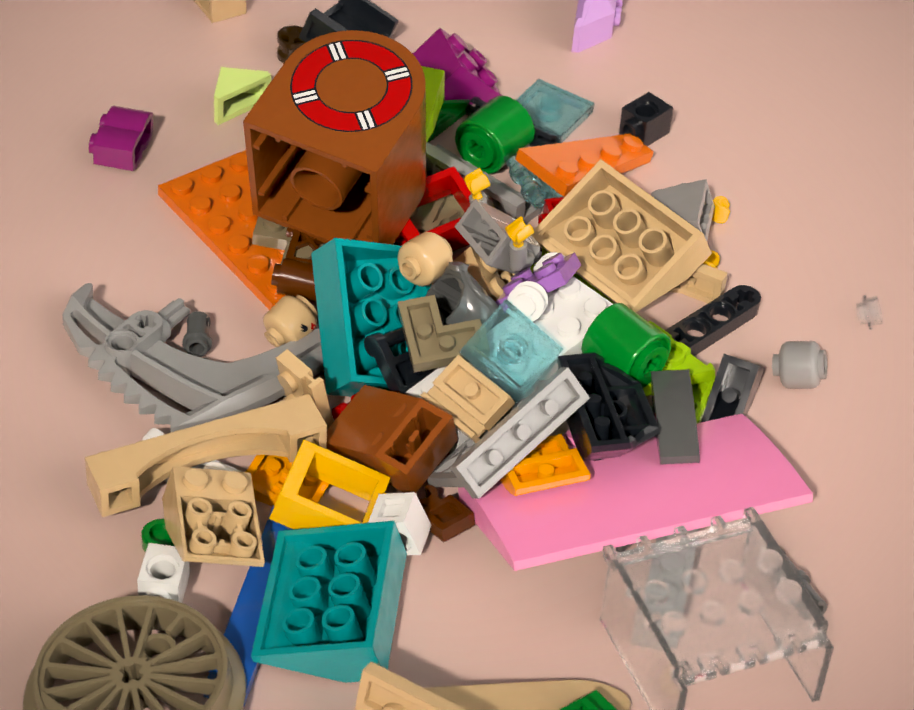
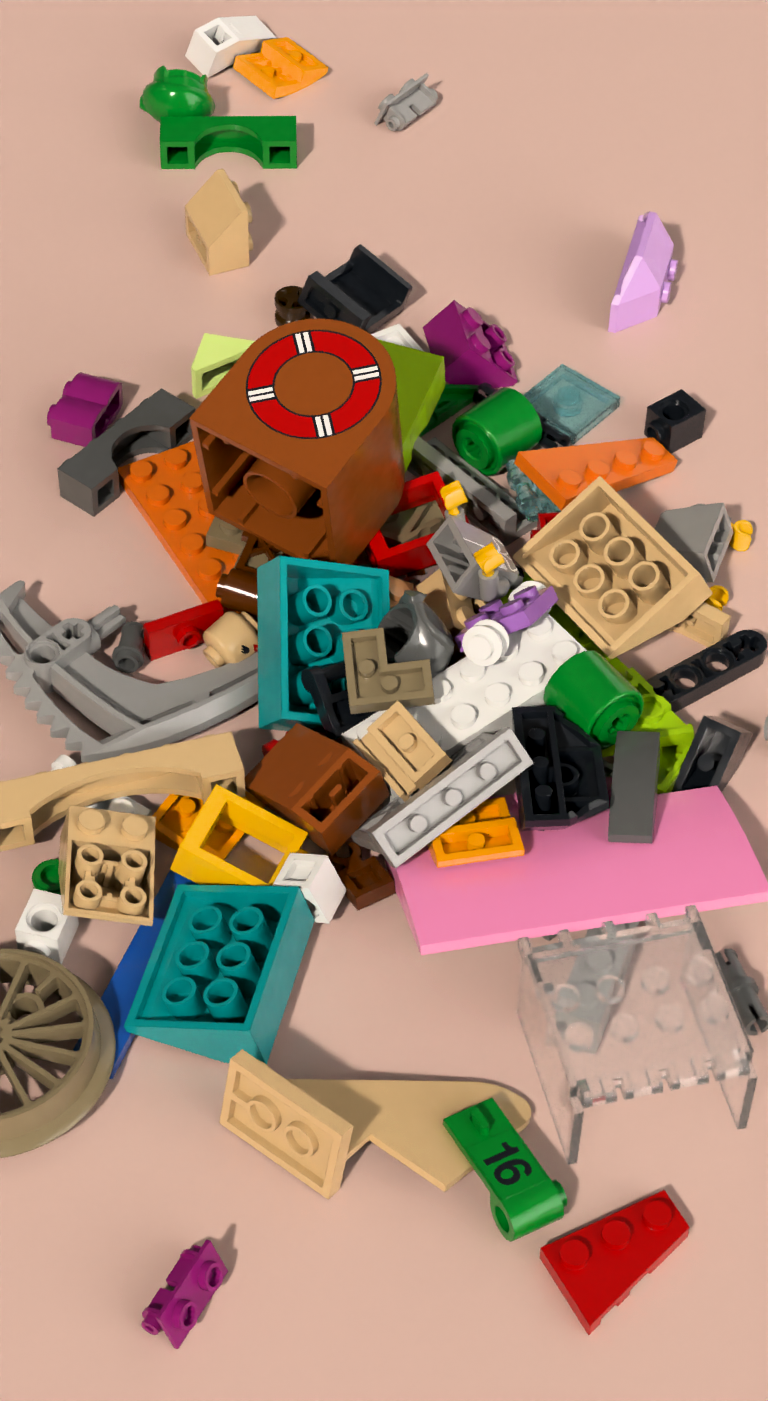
camera: 10 degrees right, 5 degrees up
(139, 189) = (154, 426): none -> dark grey arch
(241, 316) = (180, 630): none -> red plate
(299, 380) = (224, 717): tan plate -> none
(424, 258) = (380, 583): tan head -> none
(511, 350) = (458, 698): clear light blue plate -> none

